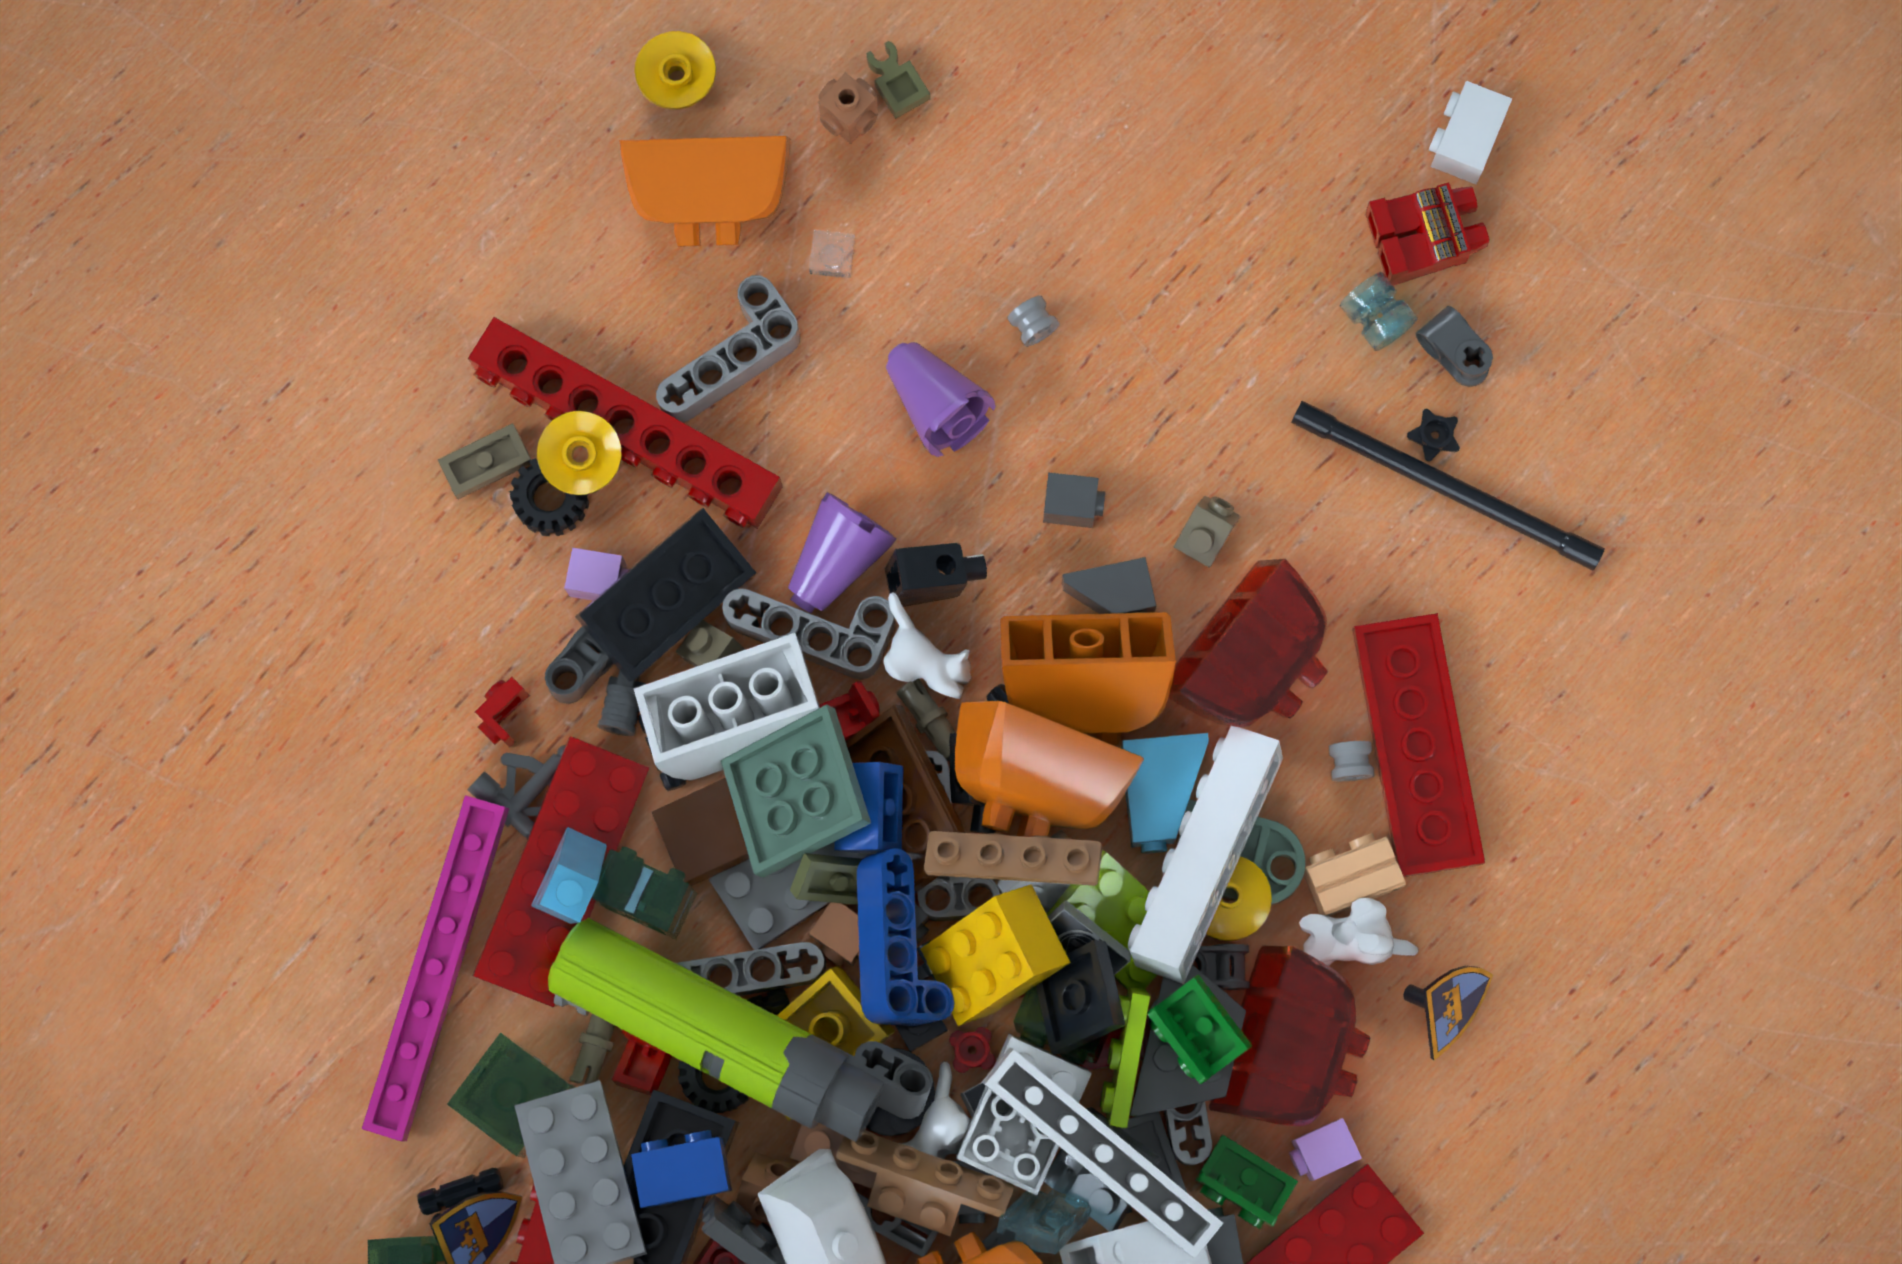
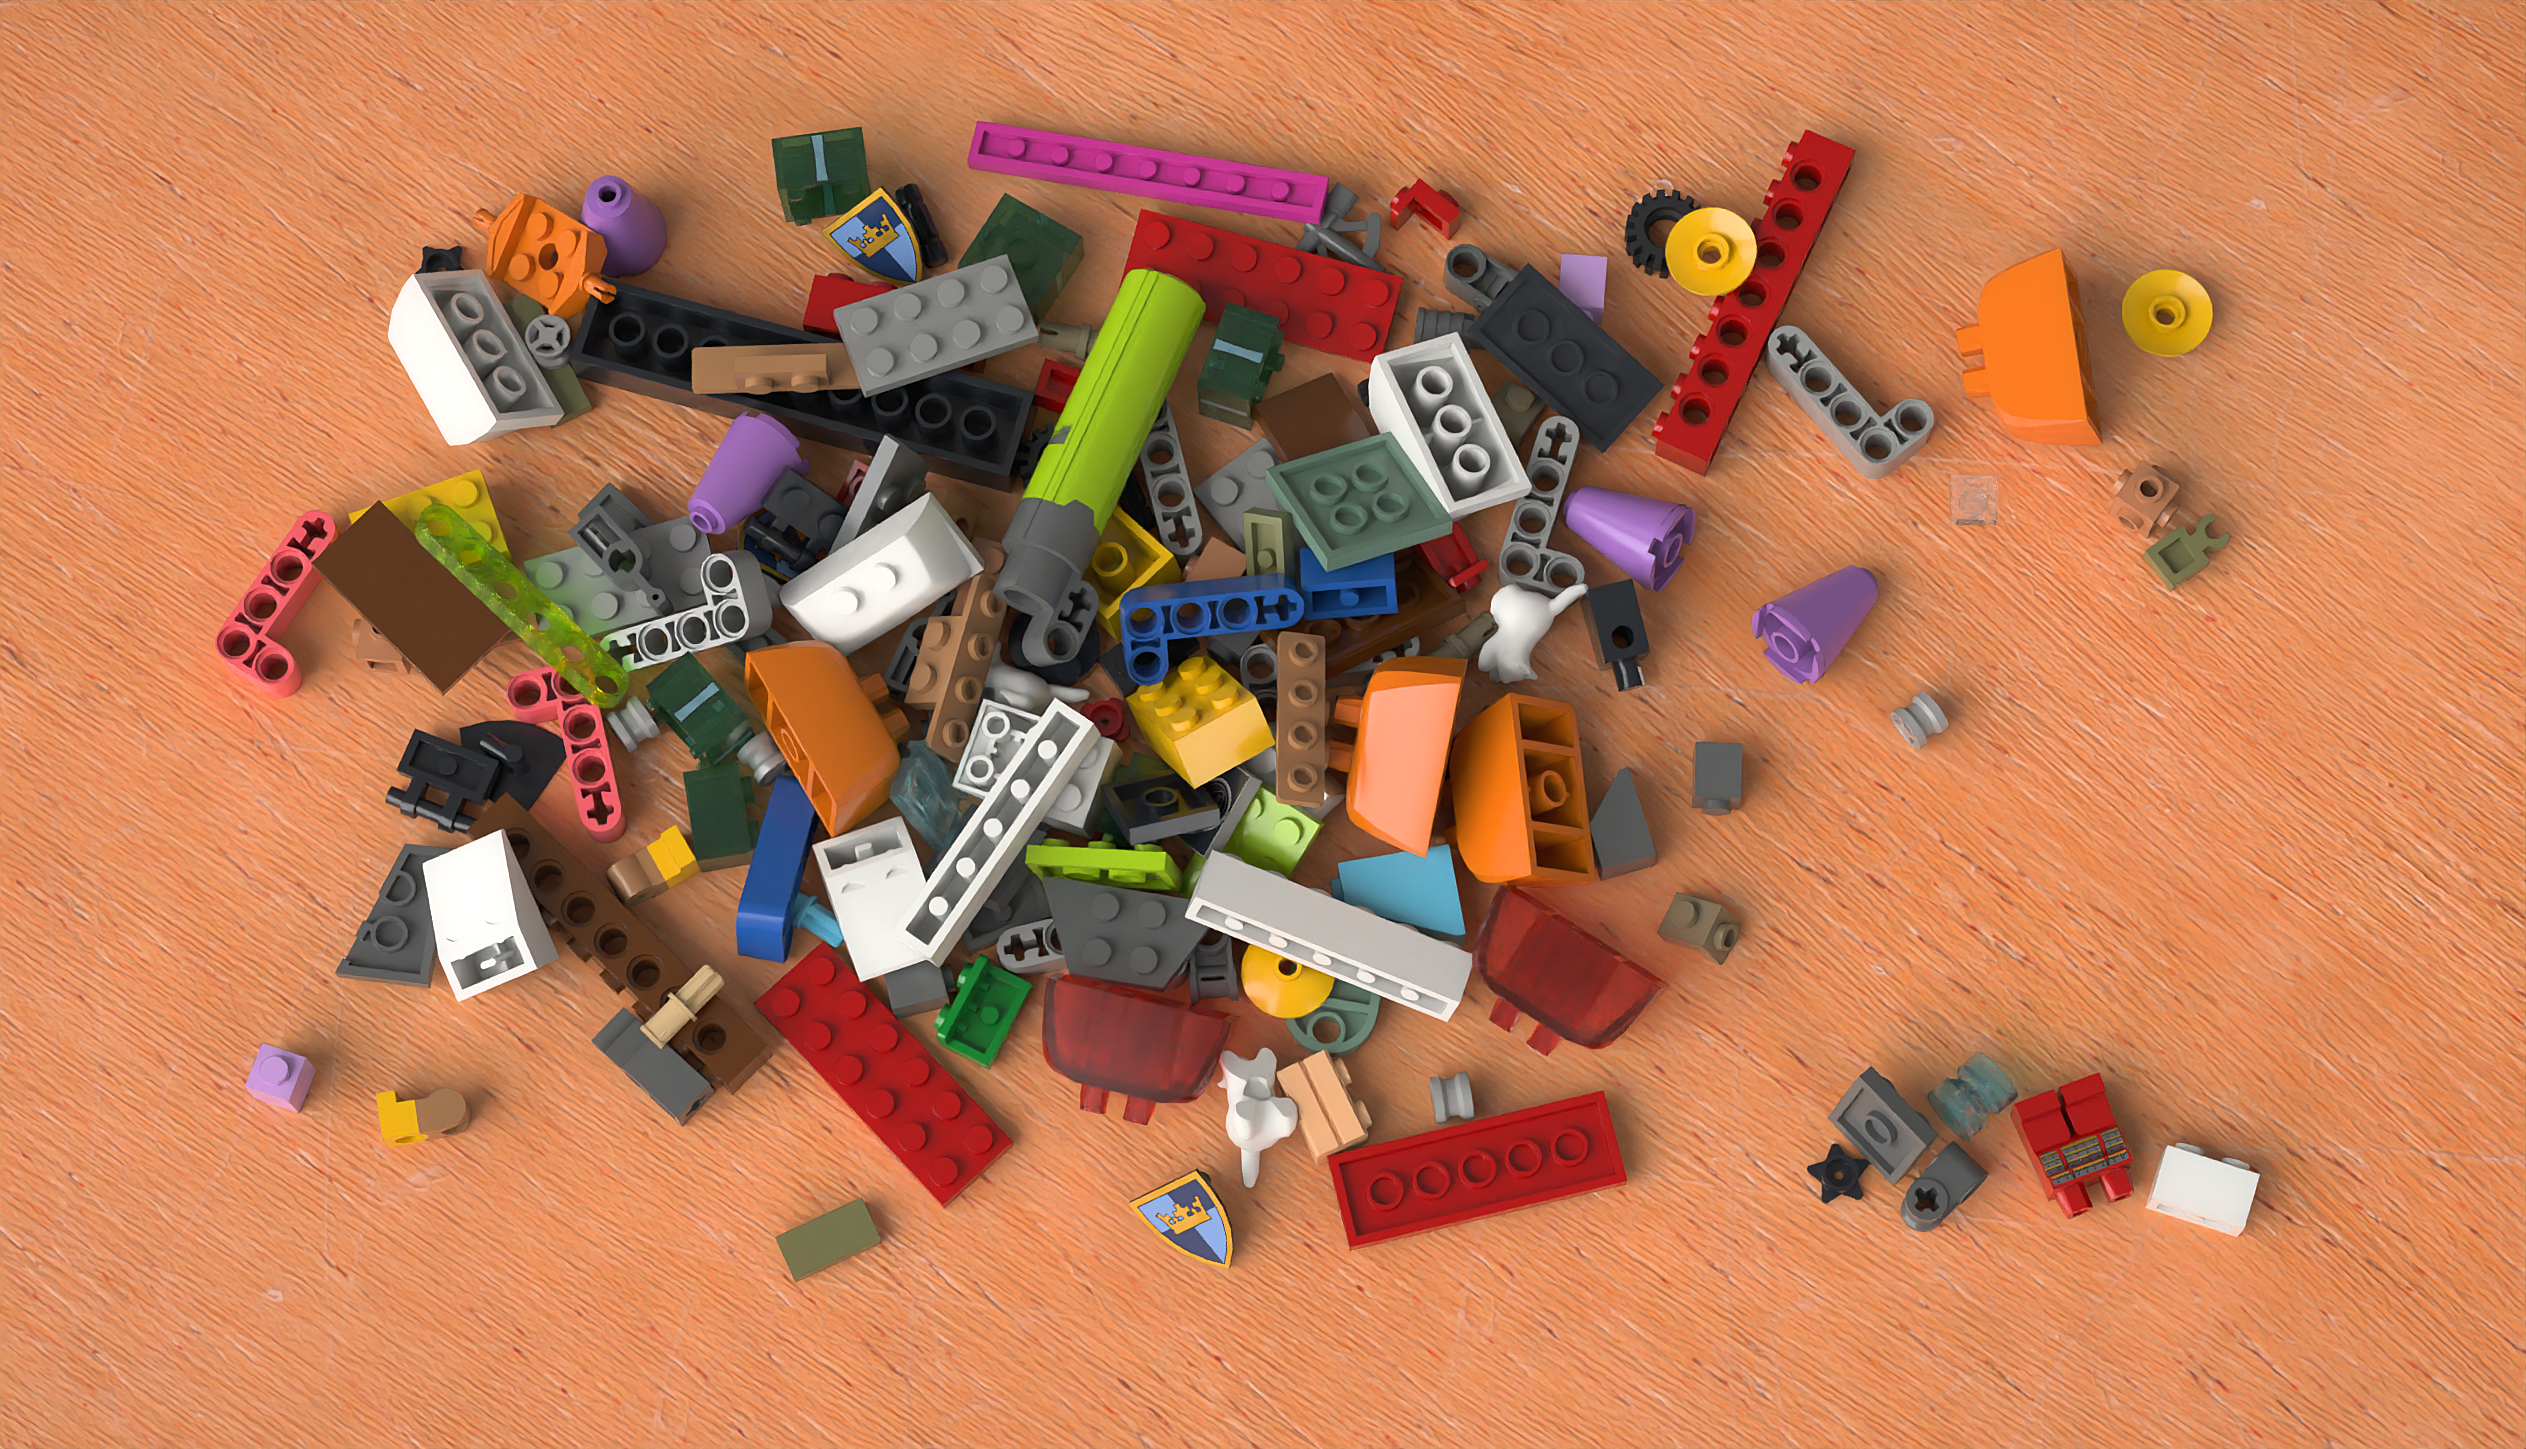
camera: 85 degrees right, 5 degrees down
(484, 461) = (1697, 163): dark tan plate -> none
(571, 877) = (1248, 283): medium azure slope -> none
(681, 1170) = (950, 422): blue brick -> none
(1198, 1030) = (1133, 928): green bracket -> none
(1324, 1150) = (1023, 1093): lavender brick -> none
(1406, 386) = (1882, 1125): none -> dark grey hinge
(1565, 543) = (1724, 1325): black piece -> none

